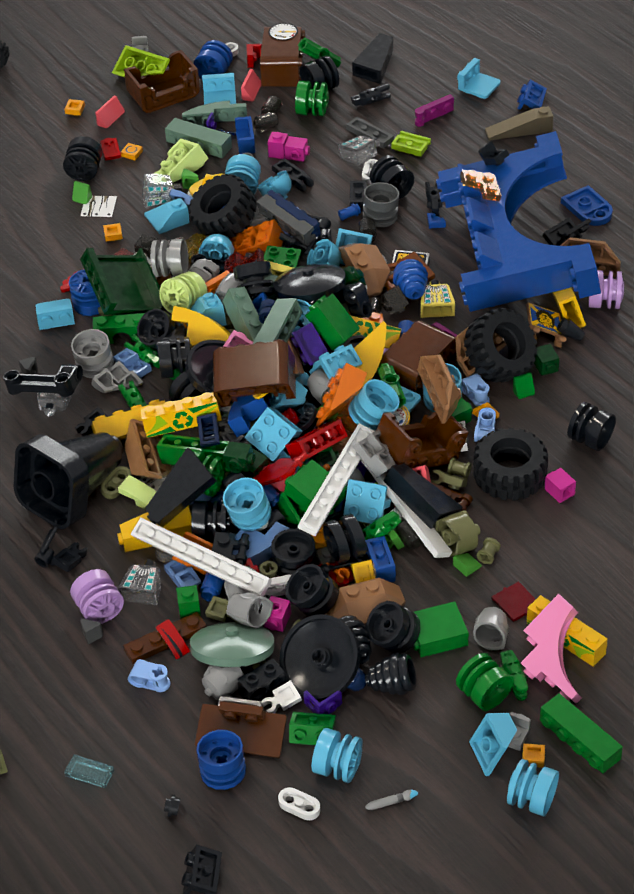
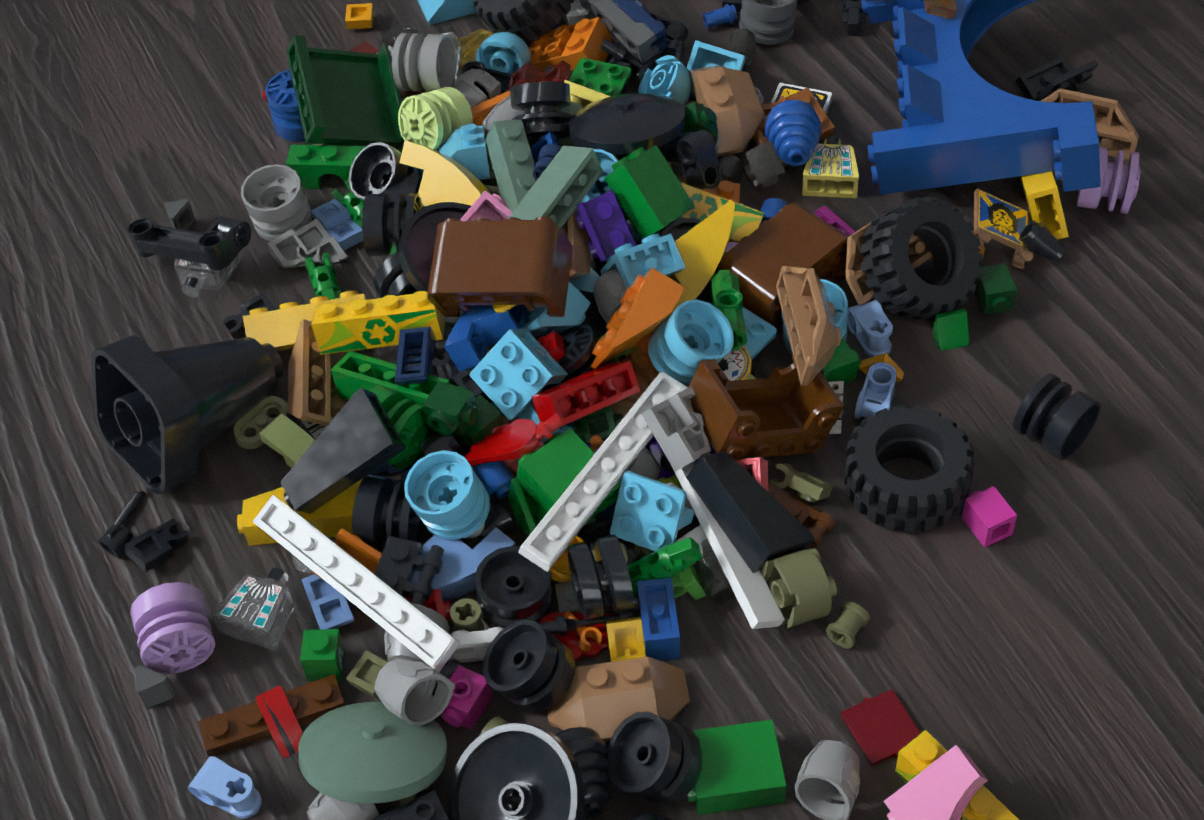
camera: 10 degrees right, 5 degrees up
(54, 314) = (240, 134): medium azure bracket -> none
(211, 587) = (365, 634): blue brick -> none
(435, 221) = (850, 44): blue tile -> none
(459, 468) = (822, 464): olive bush -> none
(466, 564) = (806, 643): bright green slope -> none
(588, 204) = (1096, 38): blue tile -> none

